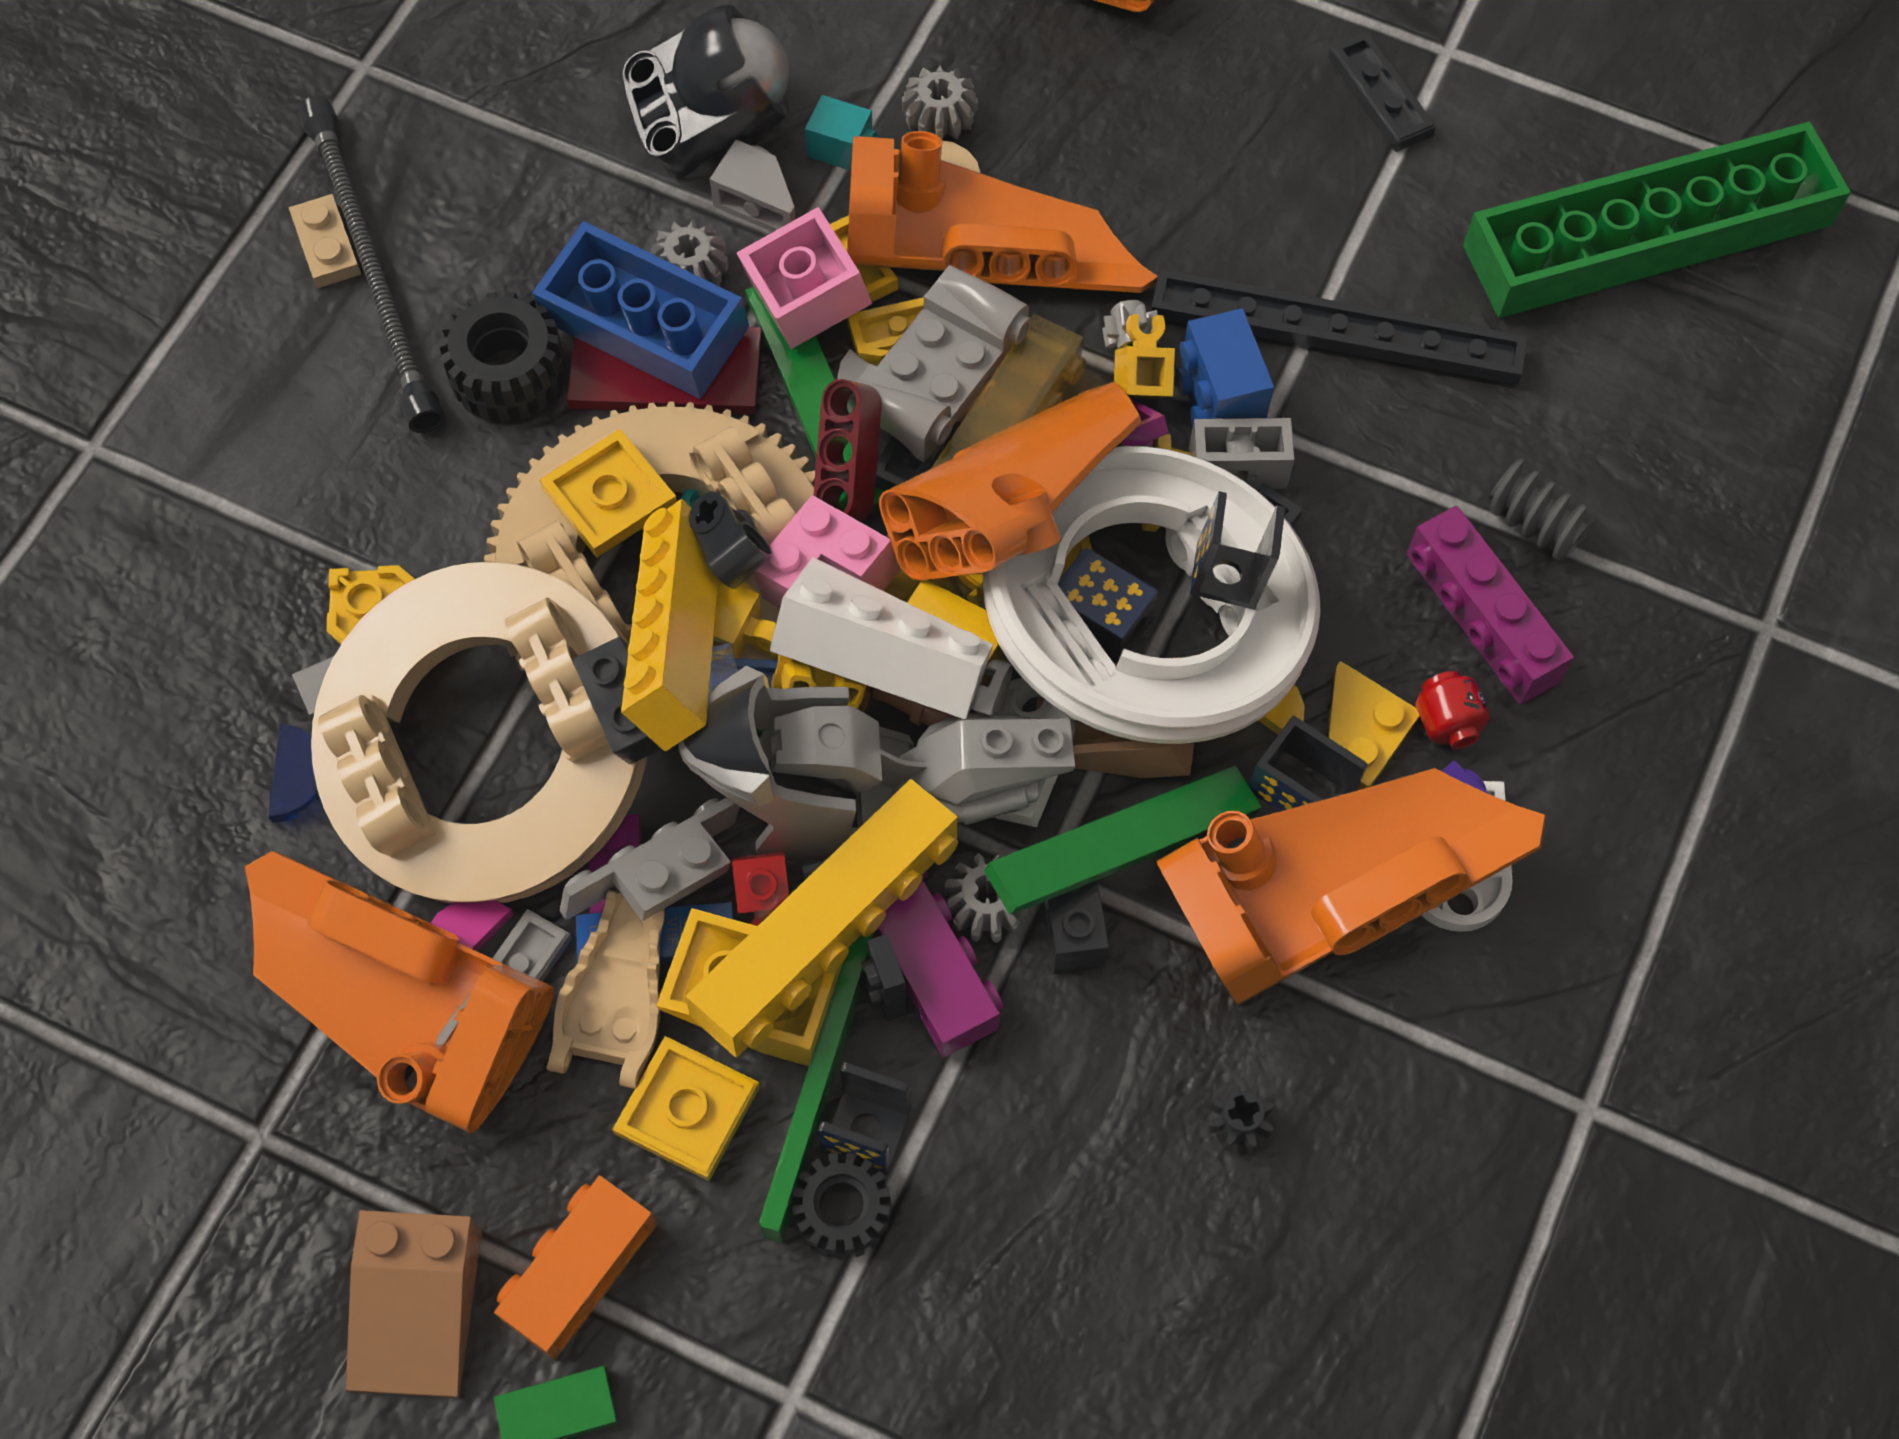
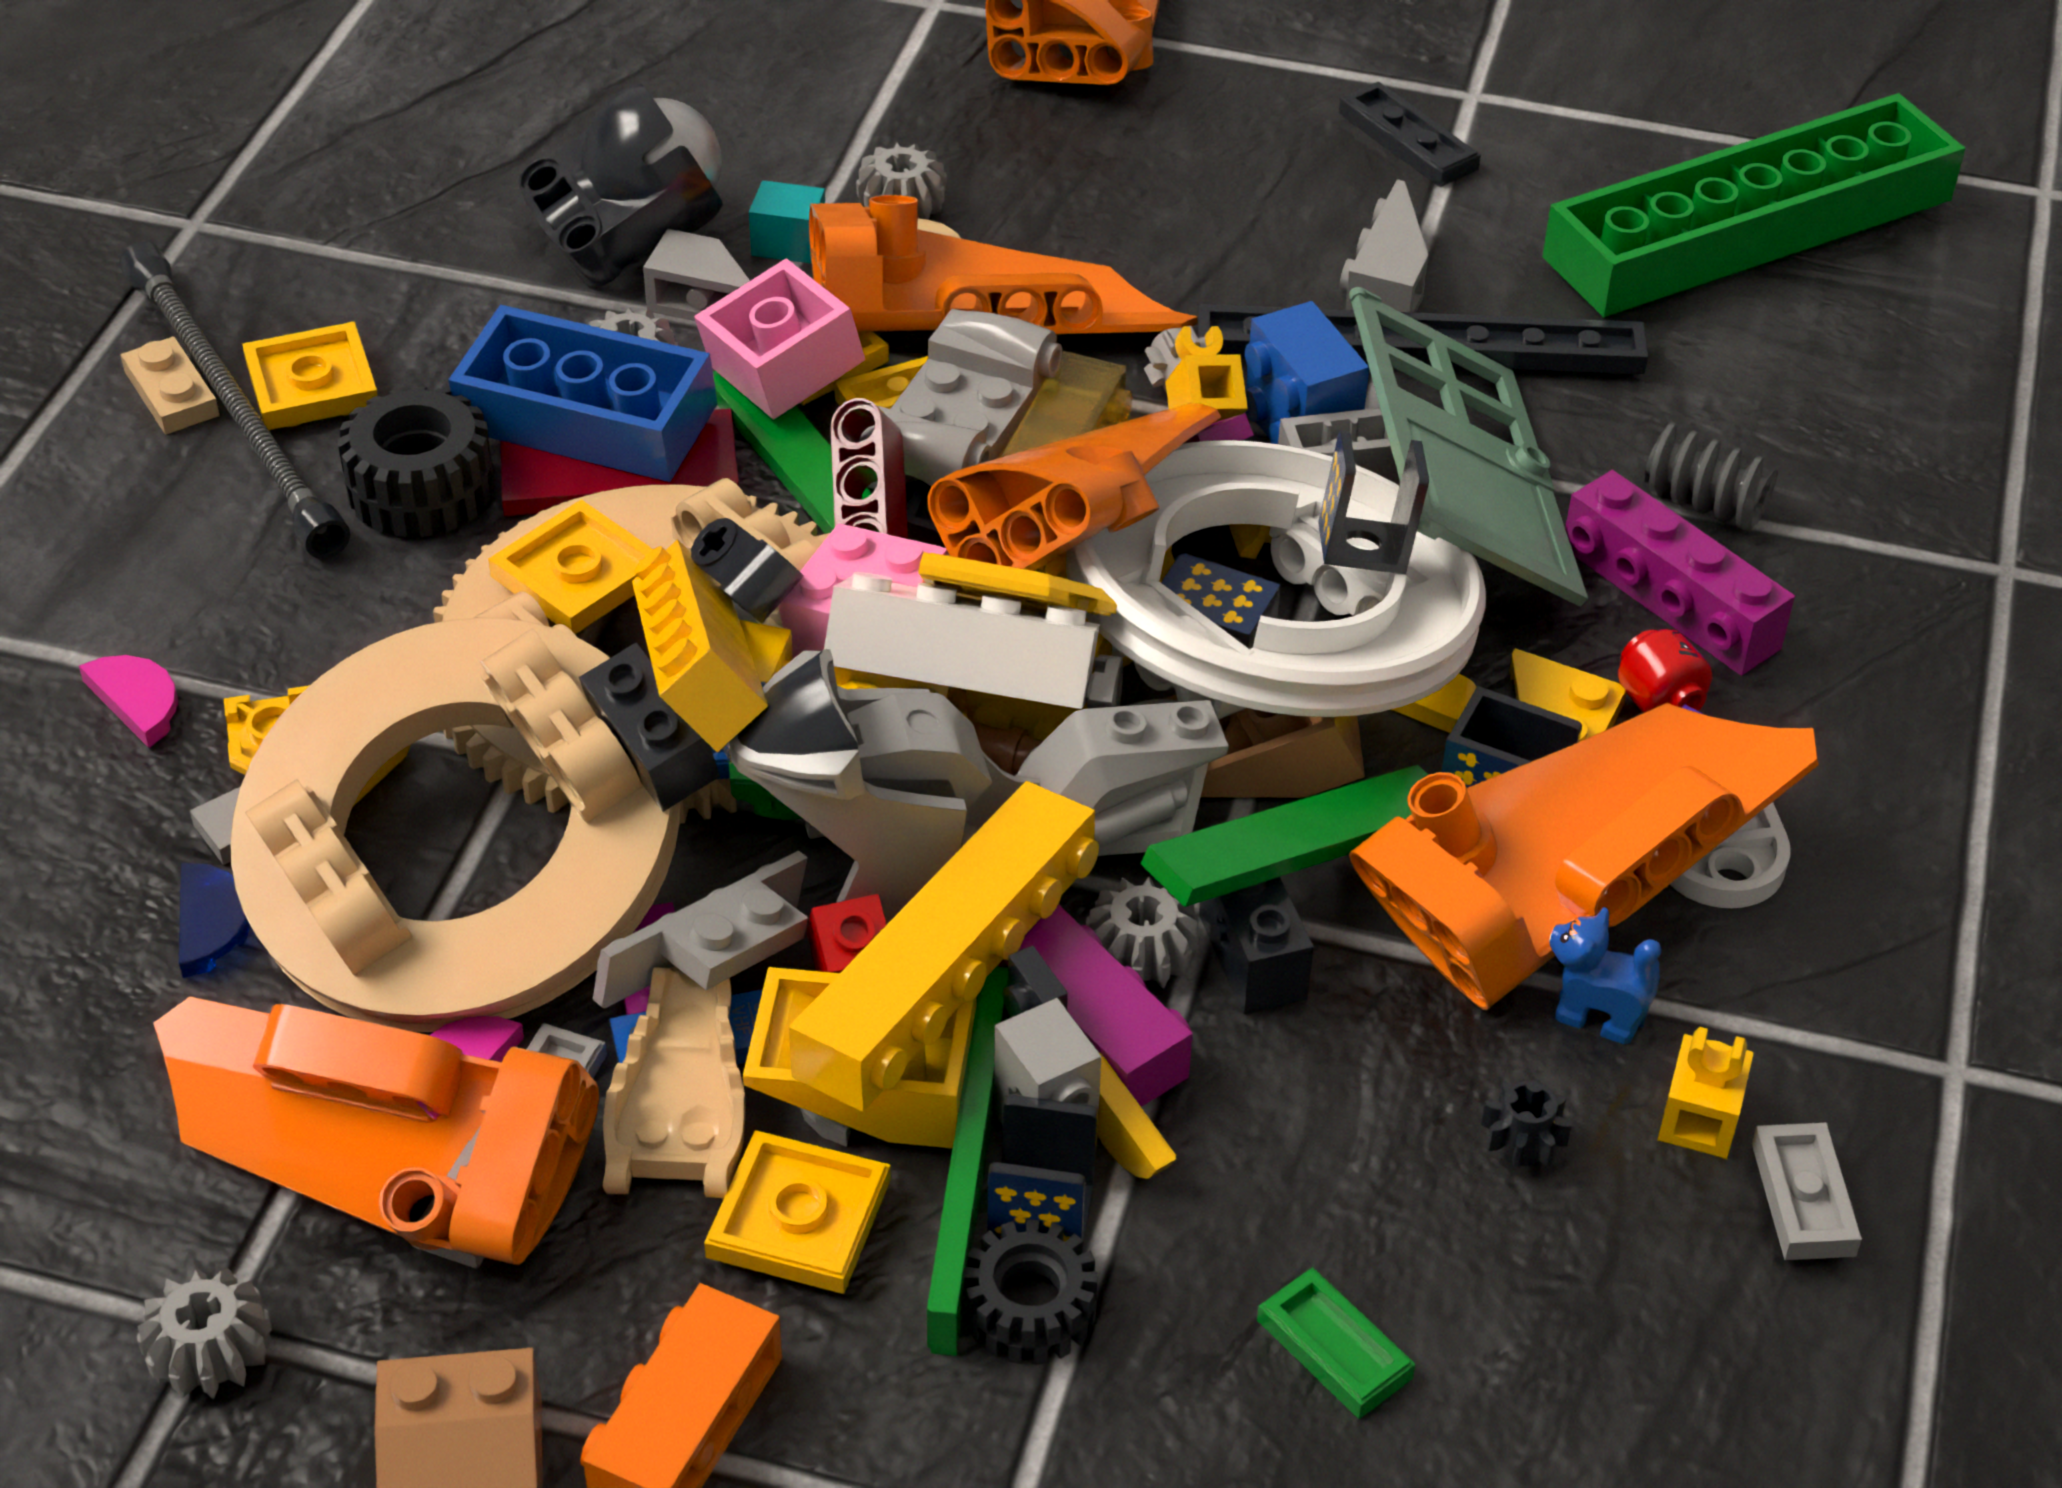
camera: 10 degrees left, 20 degrees down
(237, 1136) = (204, 1332): none -> light grey gear
(266, 550) = (136, 692): none -> dark pink tile
(433, 249) = (309, 375): none -> yellow plate
(883, 1035) = (1045, 1058): none -> light grey brick
(925, 600) = (1029, 586): none -> yellow tile
(936, 1070) = (1128, 1130): none -> yellow tile
(1058, 1280) = (1336, 1342): none -> green tile
(1328, 999) = (1604, 979): none -> blue animal
(1330, 247) = (1390, 255): none -> light grey slope
(1341, 500) = (1480, 488): none -> sand green door
(1385, 1112) = (1706, 1094): none -> yellow brick
(1439, 1209) = (1806, 1191): none -> light grey plate

